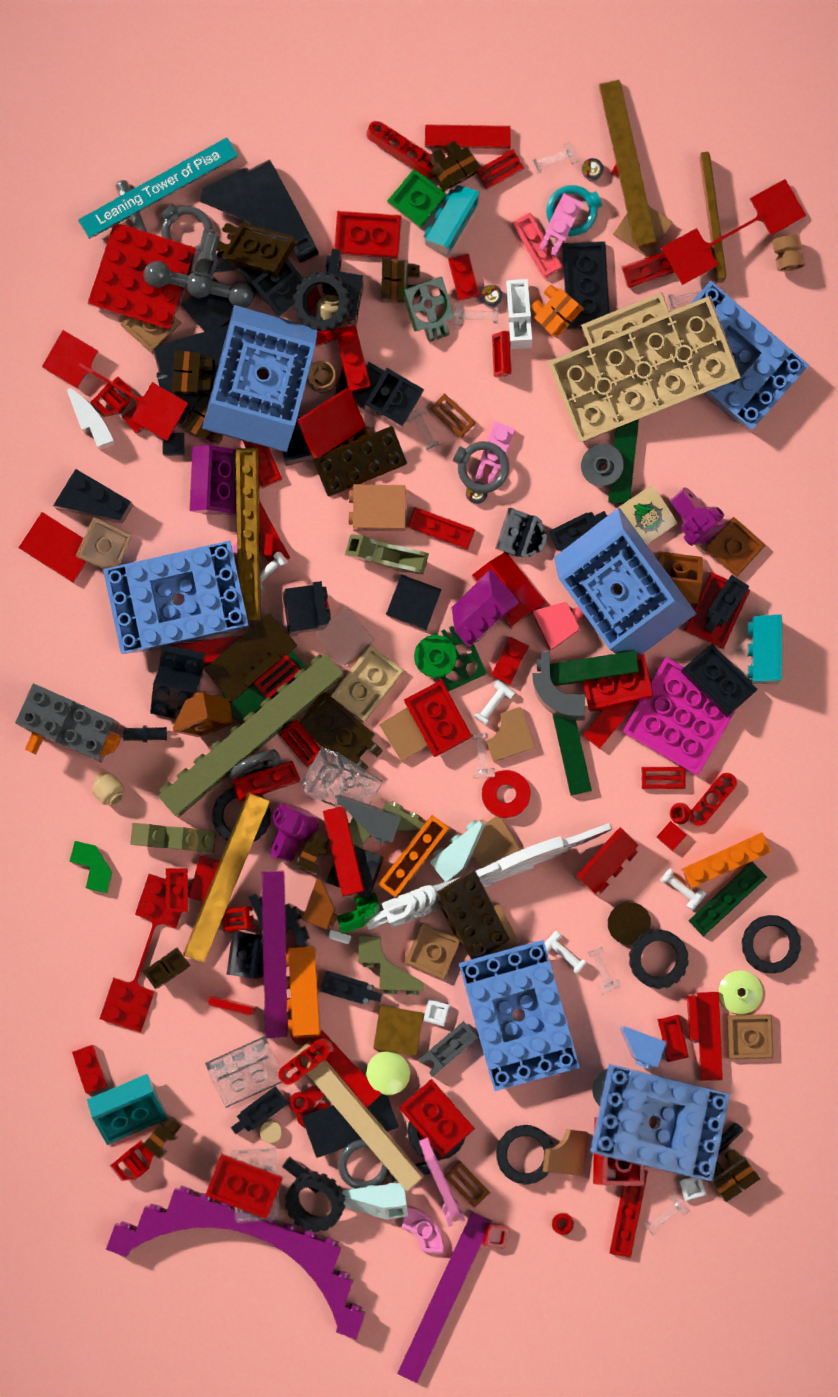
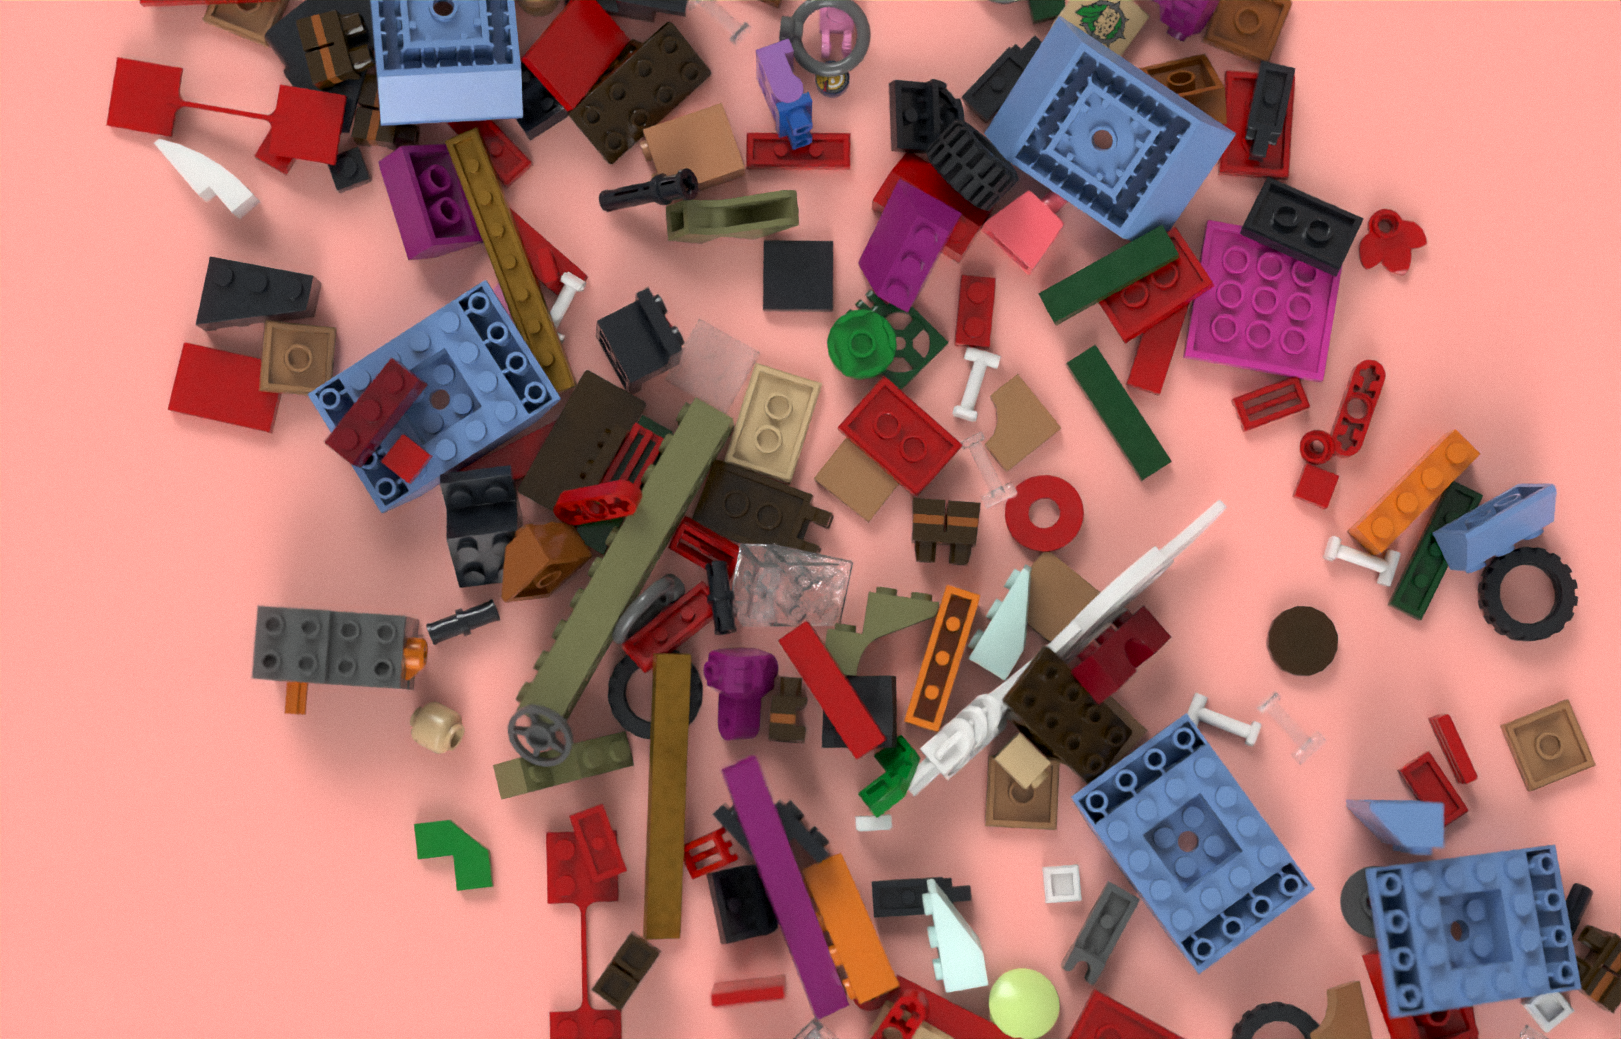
camera: 25 degrees left, 0 degrees up
(112, 398) = (229, 133): red piece -> none
(139, 596) = (375, 413): none -> dark red brick
(147, 628) = (406, 458): none -> red tile
(166, 815) = (540, 735): none -> dark grey wheel
(203, 878) = (632, 809): red tile -> none
(247, 693) = (617, 497): none -> red beam
(299, 774) = (720, 597): none -> black pin
(320, 907) = (828, 790): dark orange slope -> none
(350, 524) = (660, 189): none -> black pin
(362, 1023) = (959, 948): none -> light aqua slope
(376, 821) = (865, 625): dark grey slope -> none
(391, 976) = (974, 854): olive arch -> none
(398, 1030) = (1014, 932): pearl gold tile -> none
(434, 780) = (928, 525): none -> dark brown hips
(438, 933) = (1023, 762): none -> tan brick
(443, 493) = (784, 93): none -> hips
(506, 894) = (1119, 653): none -> dark red arch
(537, 575) = (971, 165): none -> black tyre
(558, 703) = (1065, 345): dark grey arch -> none
(607, 861) = (1236, 558): red slope -> none
(680, 965) = (1402, 686): black tyre -> none
(710, 1036) = (1494, 779): red tile -> none
(729, 987) = (1490, 687): yellowish green dish -> none
(765, 649) = (1355, 153): teal slope -> none
(765, 898) = (1497, 526): none -> medium blue slope
(769, 711) = (1390, 248): none -> red plate

